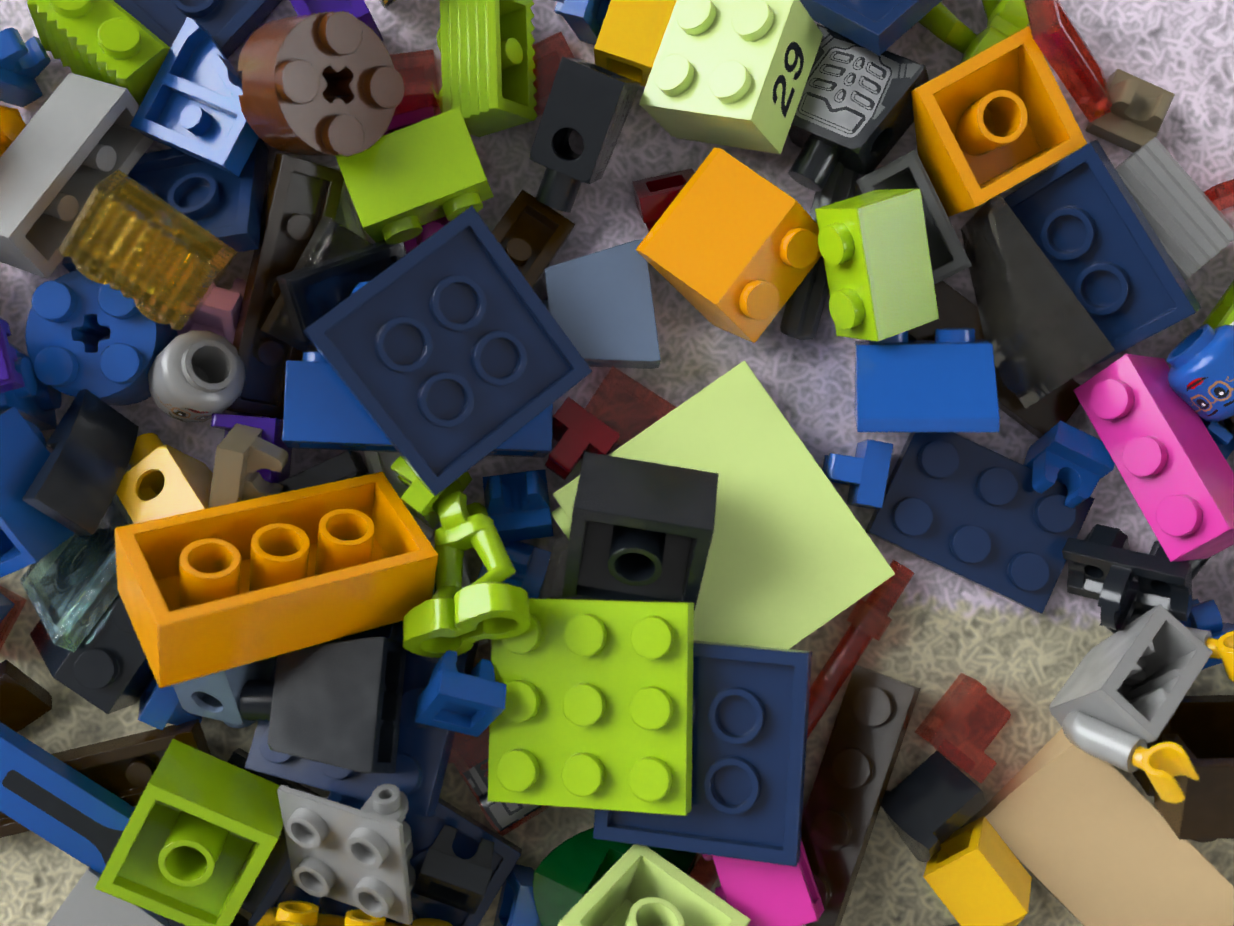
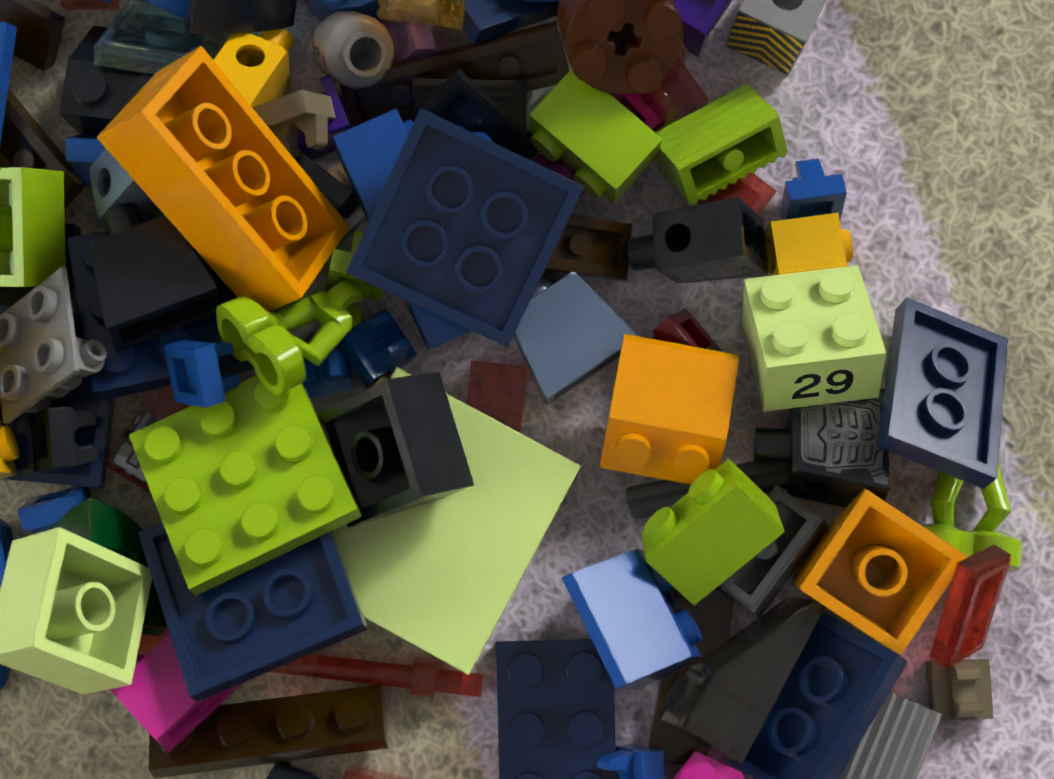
camera: 65 degrees right, 5 degrees down
(577, 433) = (455, 365): dark red tile -> none
(863, 473) = (539, 612): blue tile -> none

